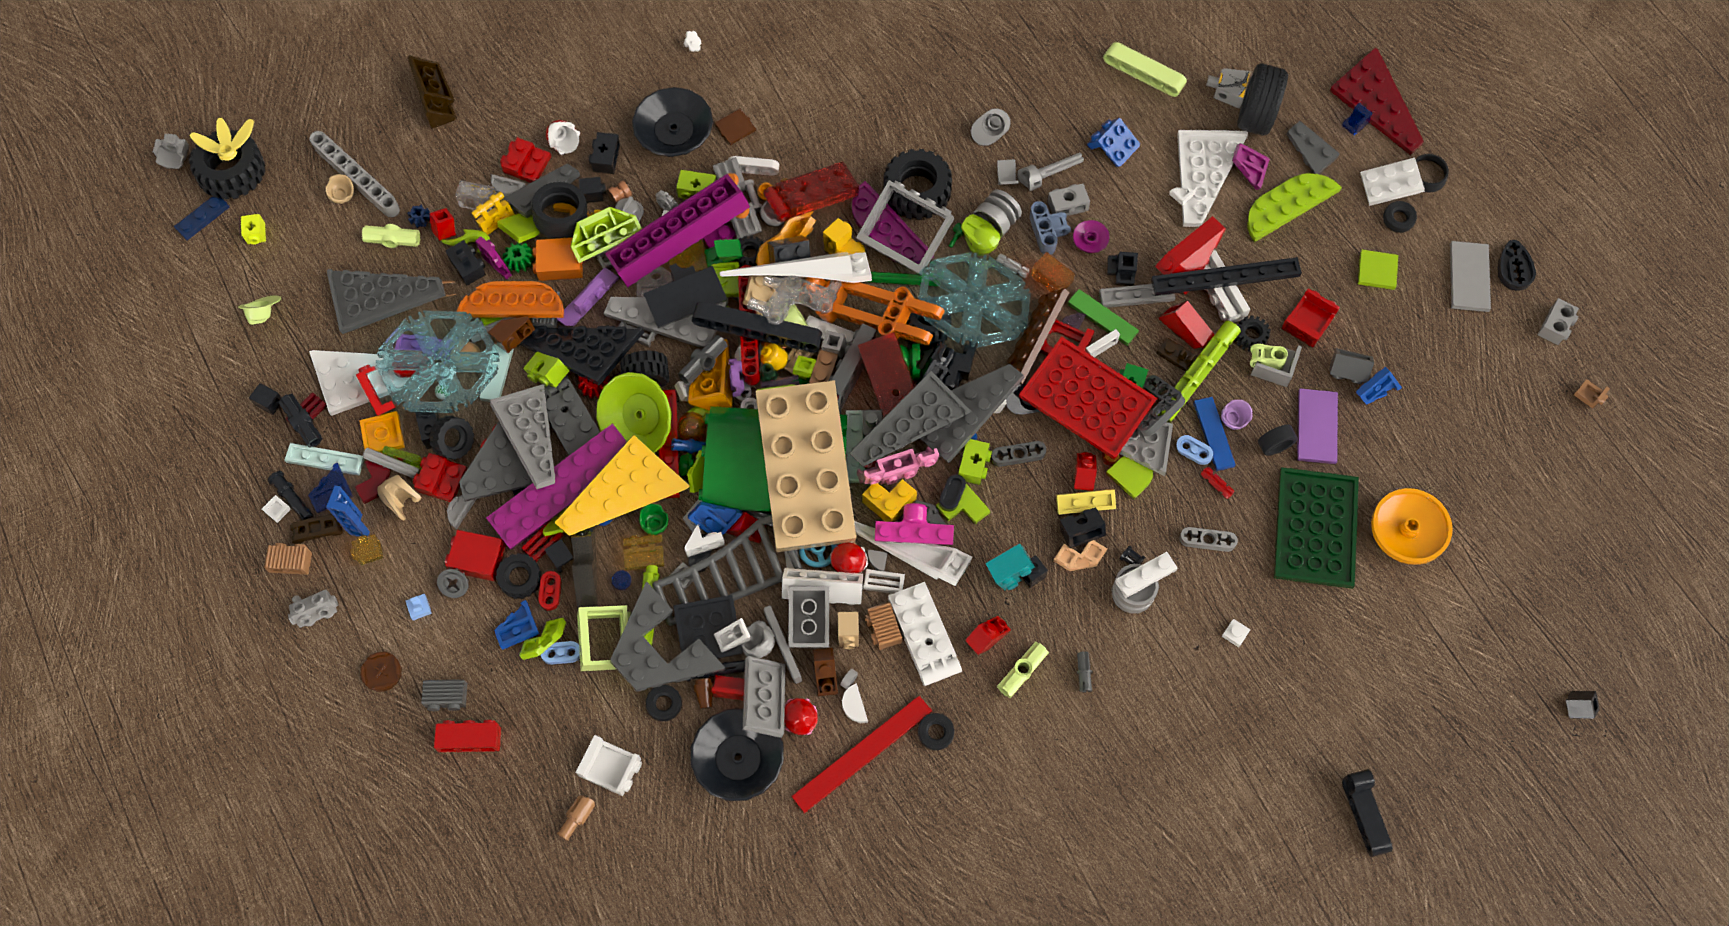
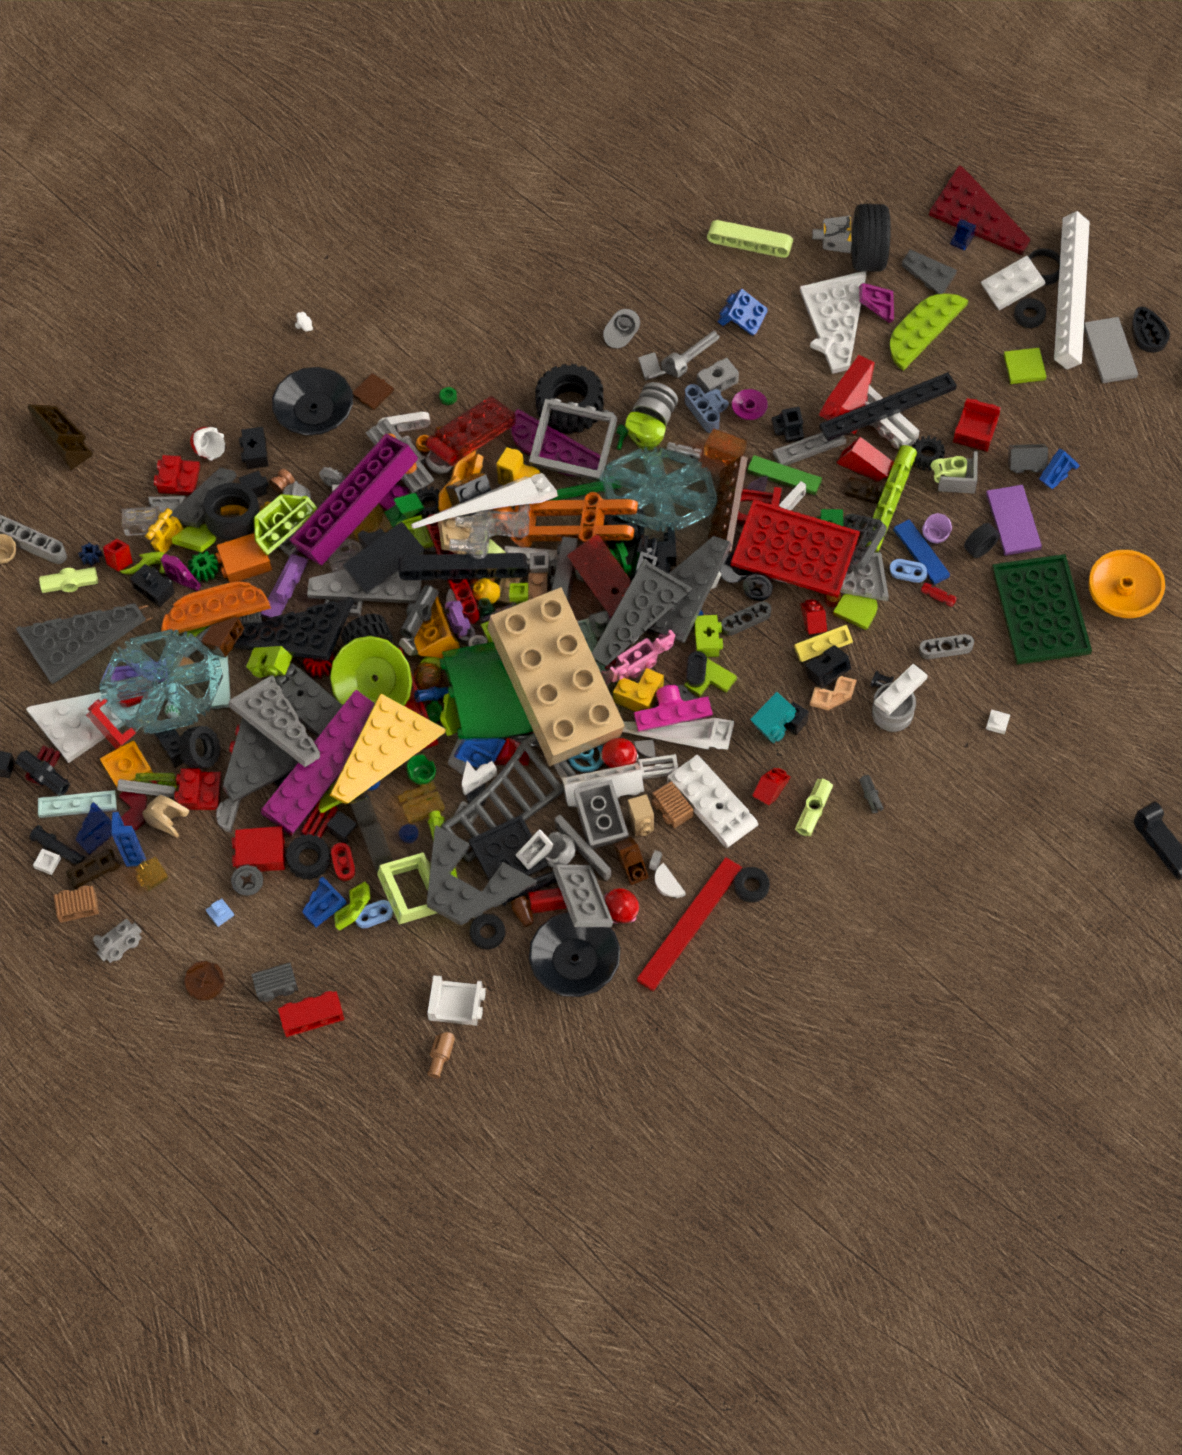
camera: 15 degrees left, 5 degrees down
(692, 182) = (352, 453): lime brick -> none
(804, 150) = (448, 396): none -> green tile
(1037, 431) = (757, 593): none -> black gear
(1449, 205) = (1071, 290): none -> white brick

